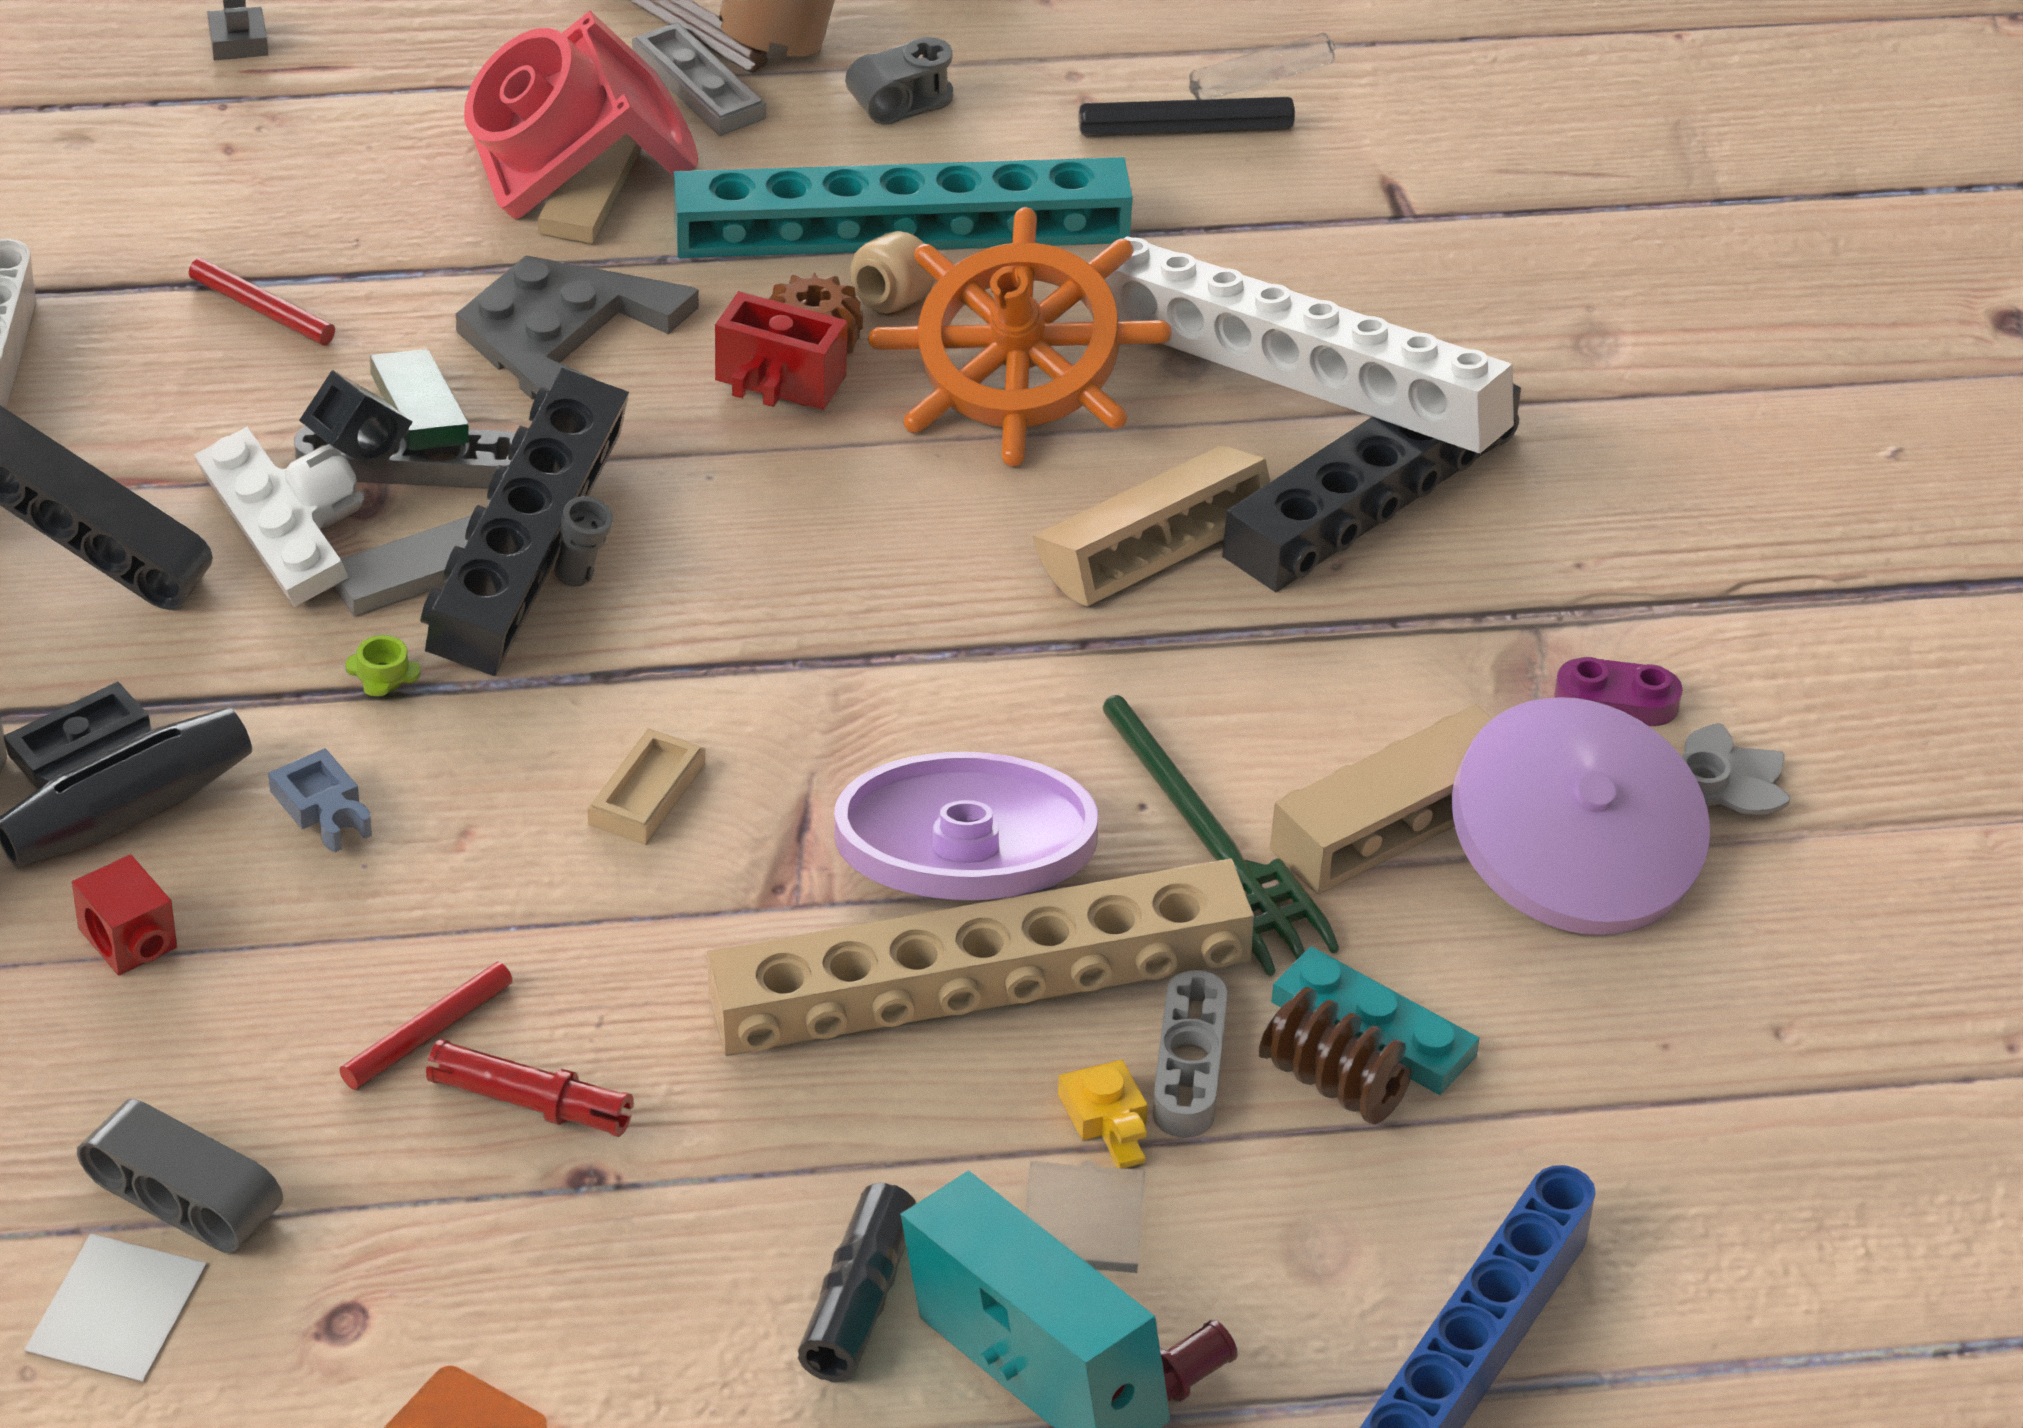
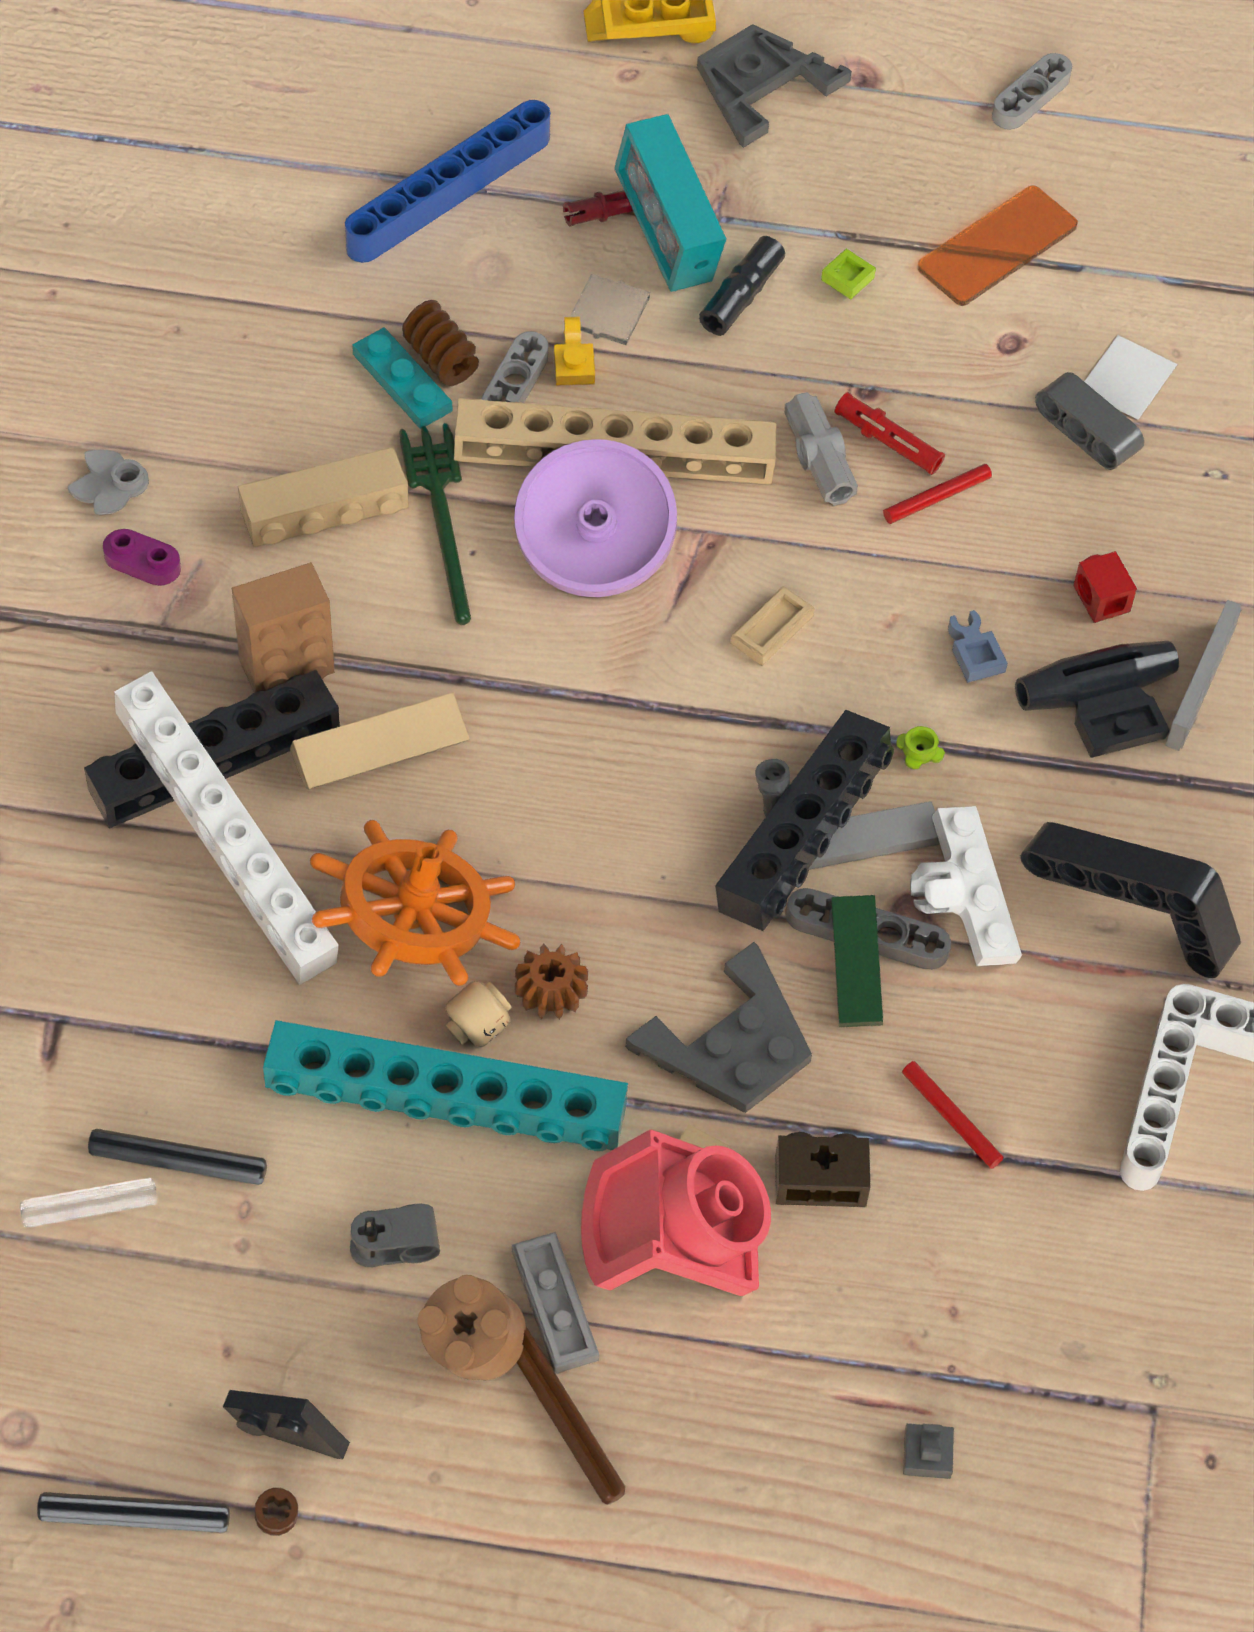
camera: 165 degrees left, 15 degrees up
(355, 421) = (912, 897): black brick -> none
(414, 207) = (802, 1181): none -> dark brown brick
(641, 1033) = (820, 449): none -> light grey piece
(671, 1350) = (848, 273): none -> lime plate
(780, 351) = (588, 927): red brick -> none
(1343, 543) = (283, 627): none -> medium nougat brick
(1580, 816) = (225, 447): lavender dish -> none

